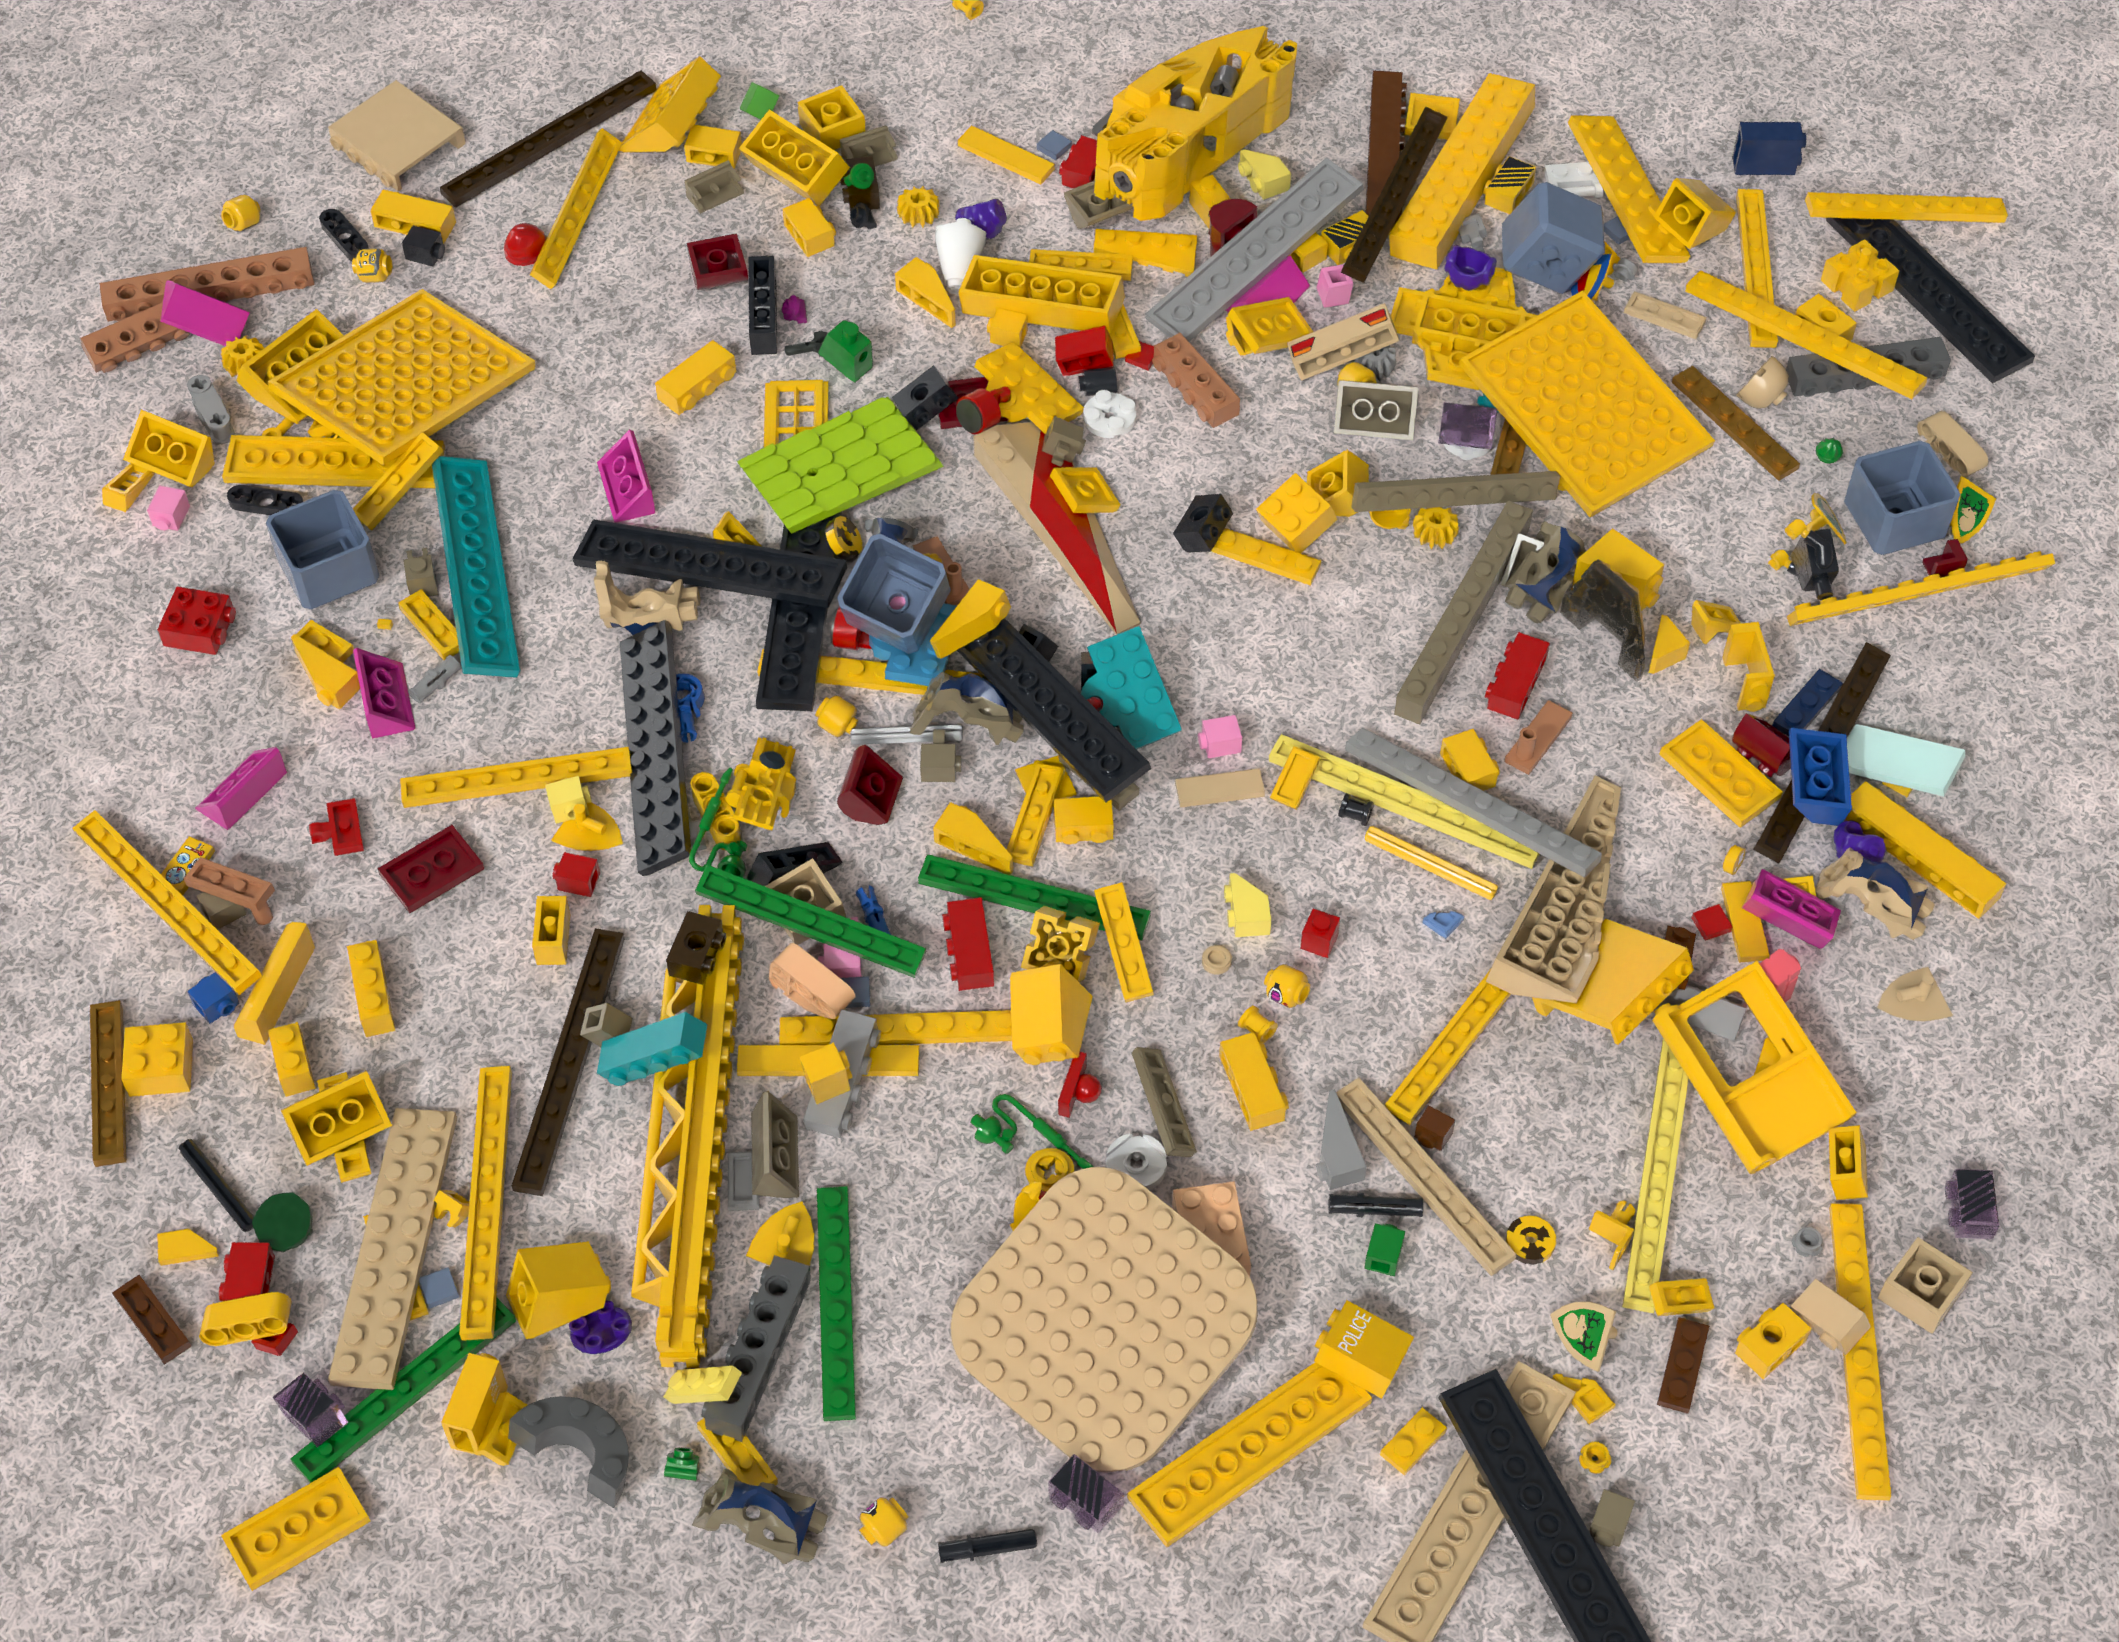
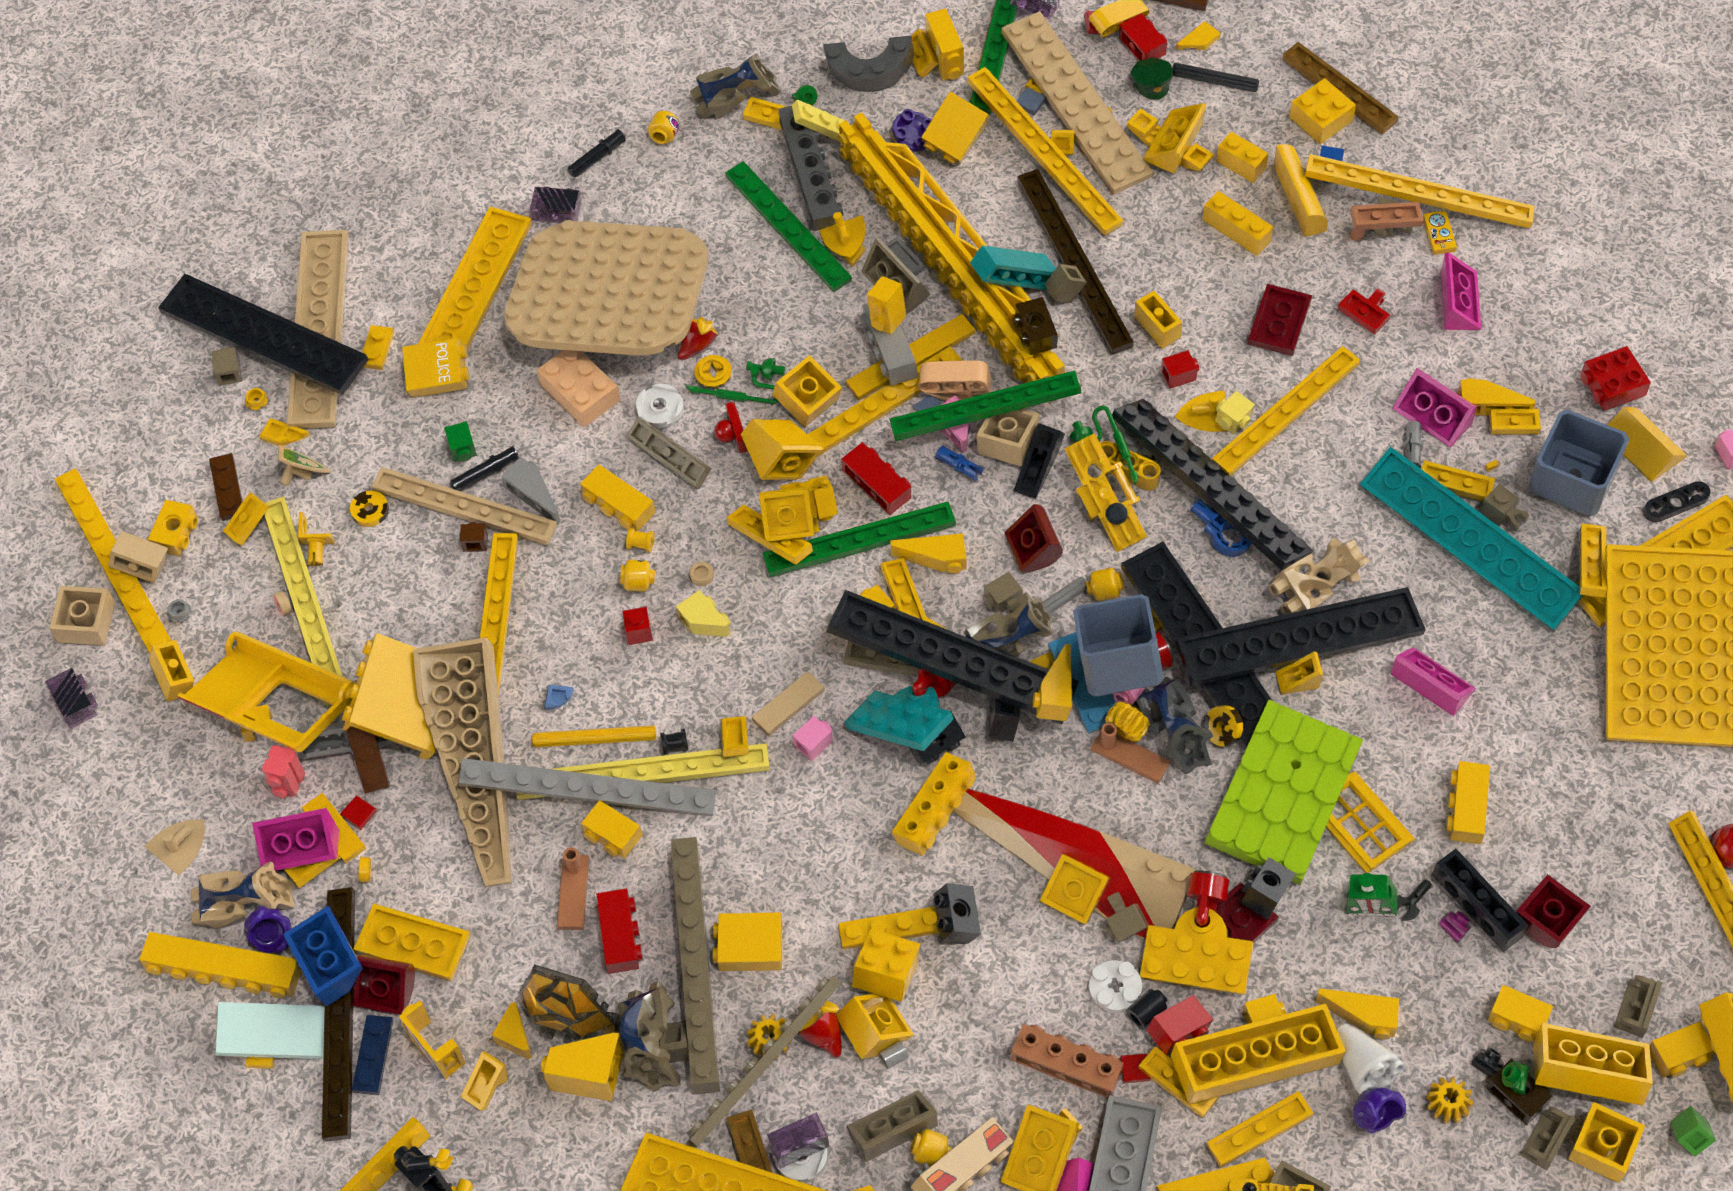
camera: 150 degrees right, 5 degrees up
(235, 560) = (1647, 445): none -> yellow slope
(972, 1068) = (807, 391): none -> yellow brick
(1106, 918) = (786, 514): none -> yellow plate
(1158, 615) = (934, 804): none -> yellow brick
(1403, 604) = (748, 941): none -> yellow brick
(1686, 1179) = (282, 603): none -> tan tile

